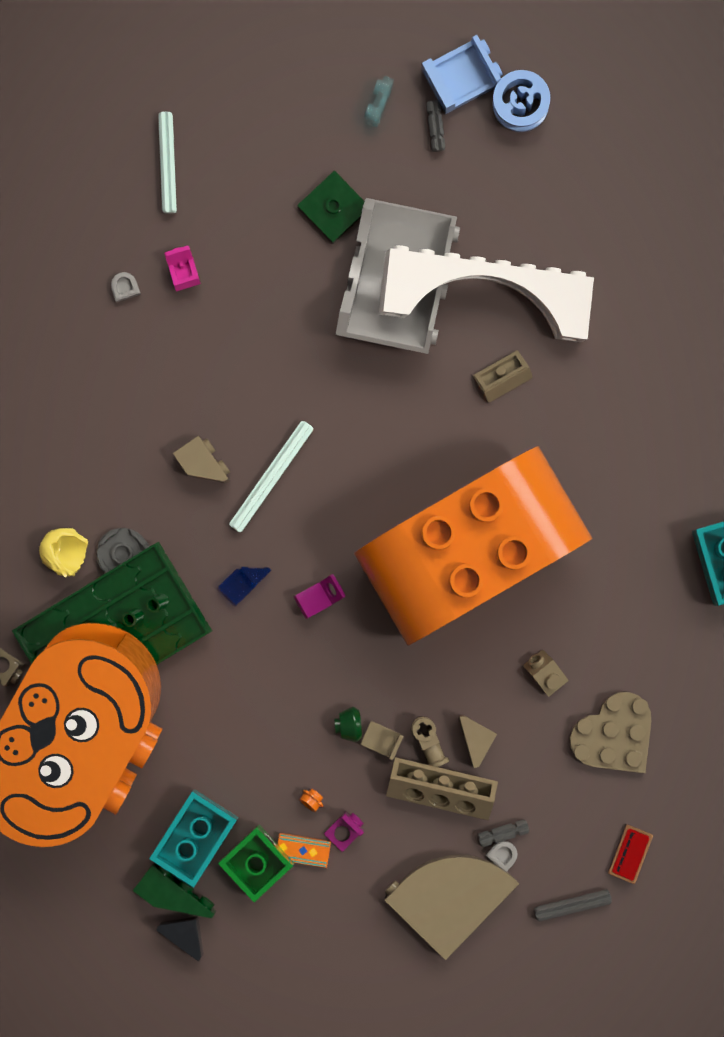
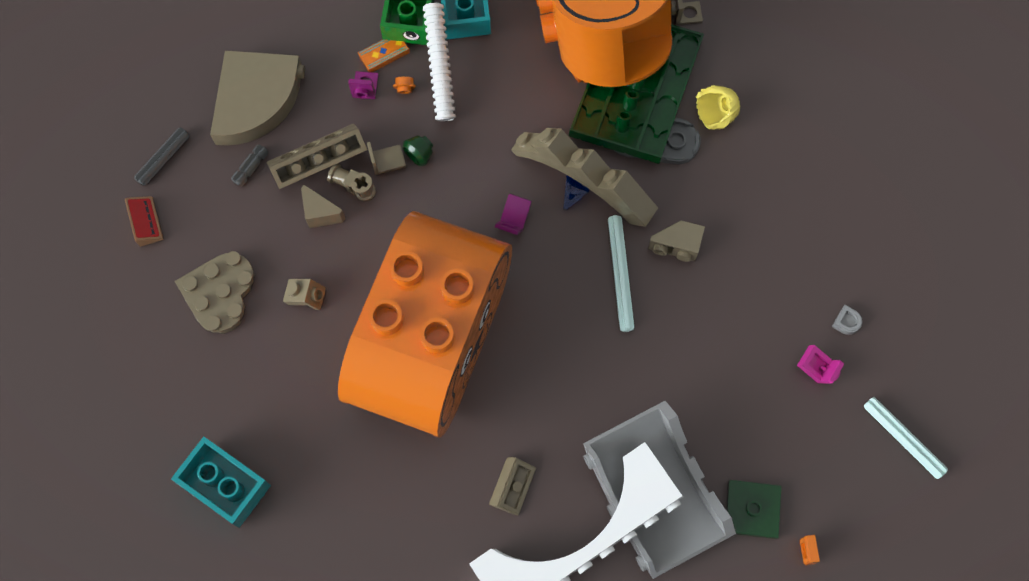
camera: 135 degrees right, 15 degrees down
(230, 582) = (588, 168): none -> dark tan arch
(267, 789) = (439, 61): none -> white piece
(320, 142) = (809, 550): none -> orange tile
(503, 854) = (238, 151): light grey tile -> none

